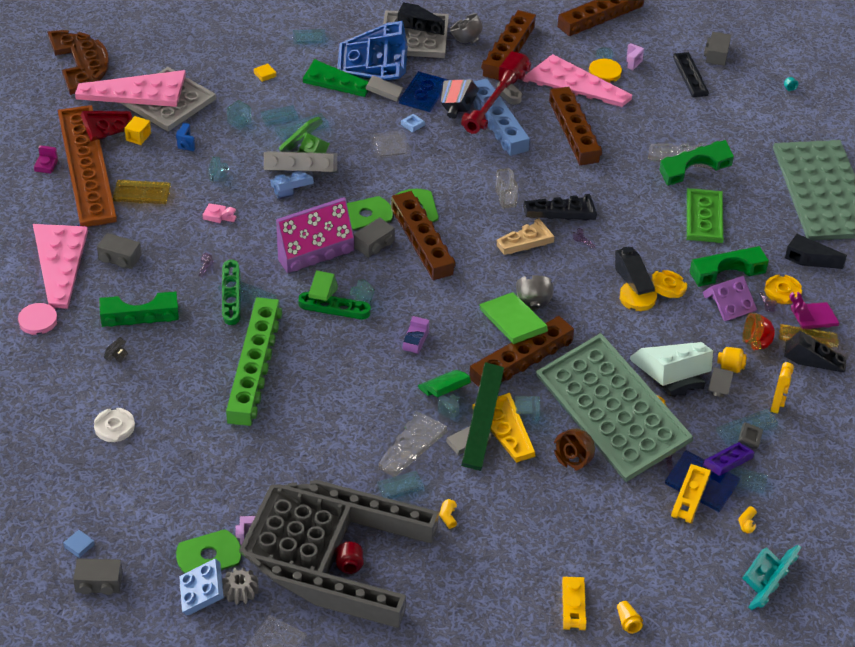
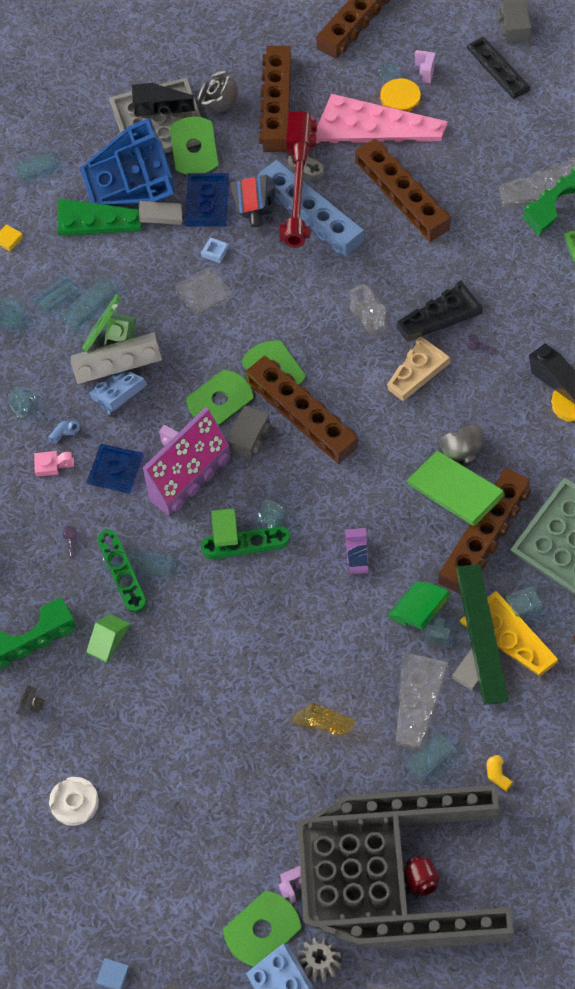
camera: 15 degrees left, 15 degrees up
(196, 330) = (106, 637): none -> bright green slope
(240, 196) = (64, 428): none -> medium blue arm
(253, 362) = (211, 731): bright green brick -> none
(260, 231) = (115, 468): none -> clear blue tile
(330, 431) = (323, 719): none -> clear yellow wing
(434, 43) = (193, 129): none -> bright green piece

